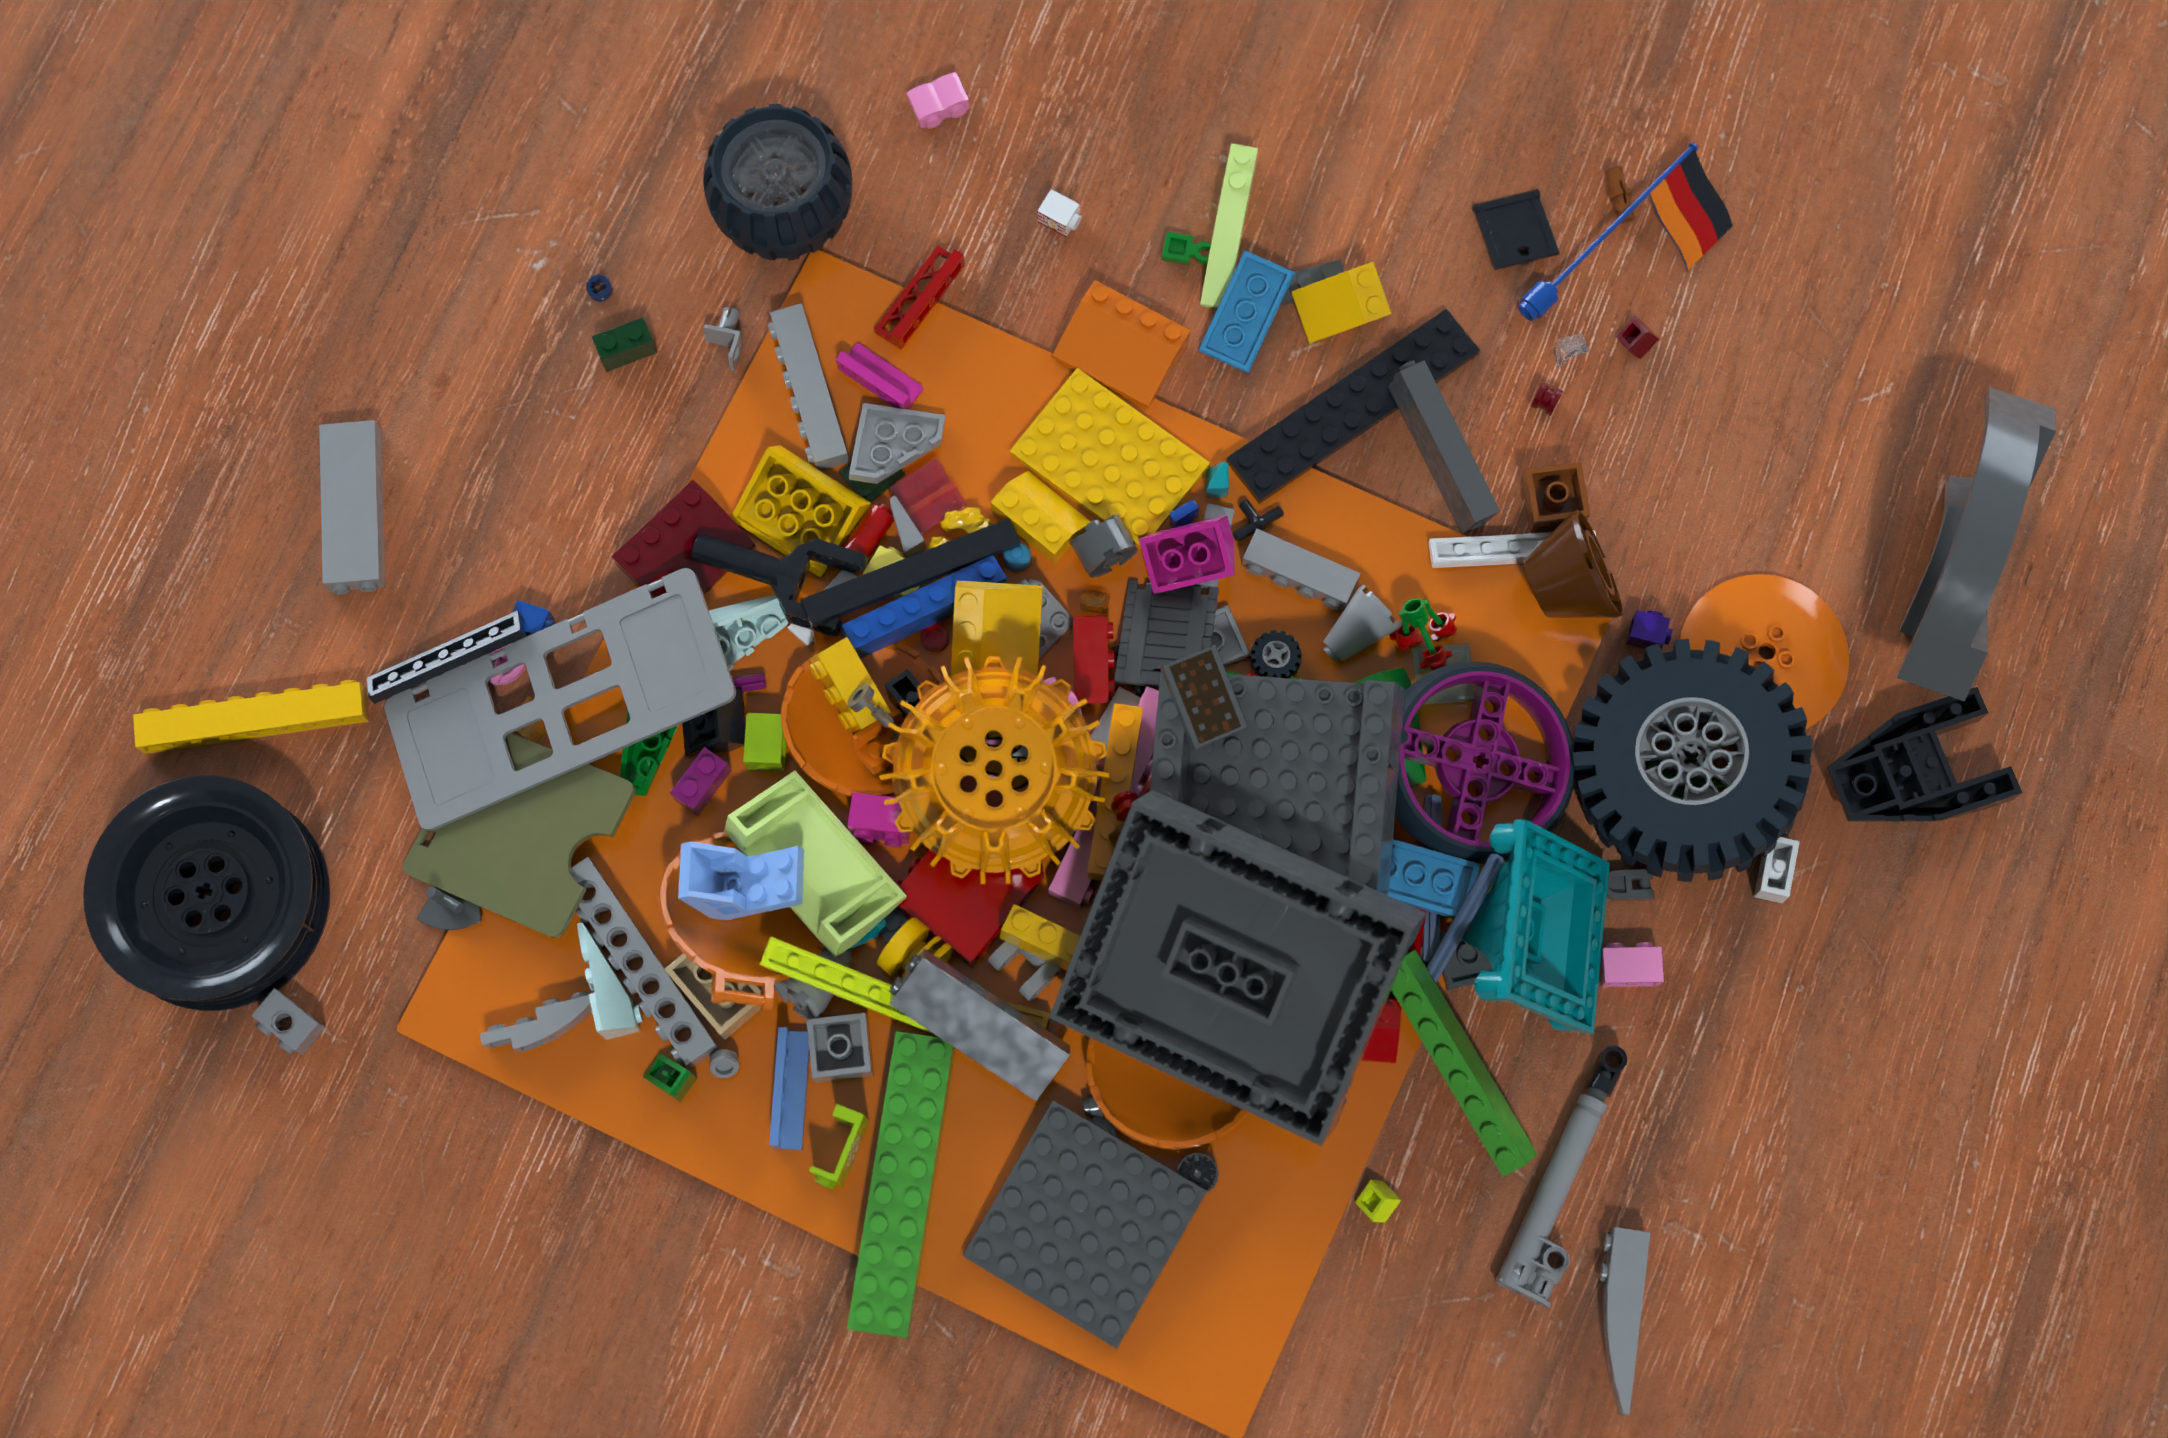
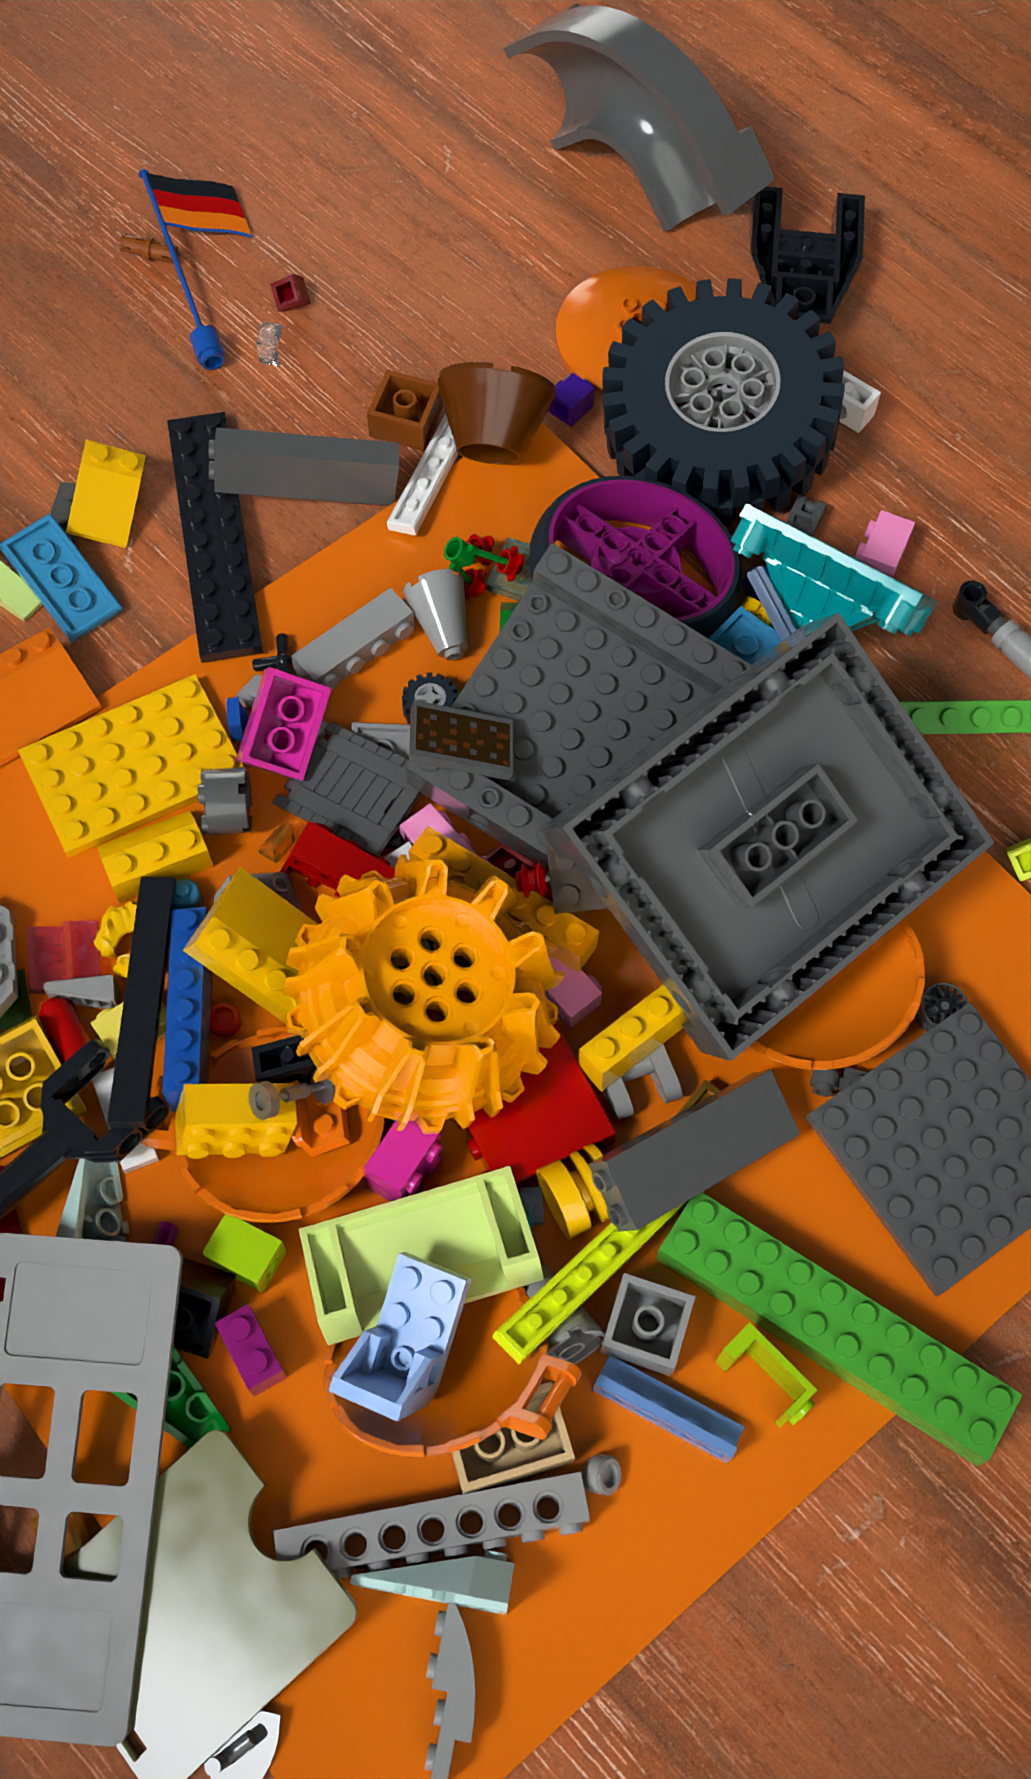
camera: 70 degrees left, 10 degrees down
(670, 1077) = (589, 1551): green slope -> none
(1217, 481) = (218, 674): teal slope -> none
(1513, 225) = (123, 337): black container -> none
(1546, 398) = (305, 380): dark red wheel -> none

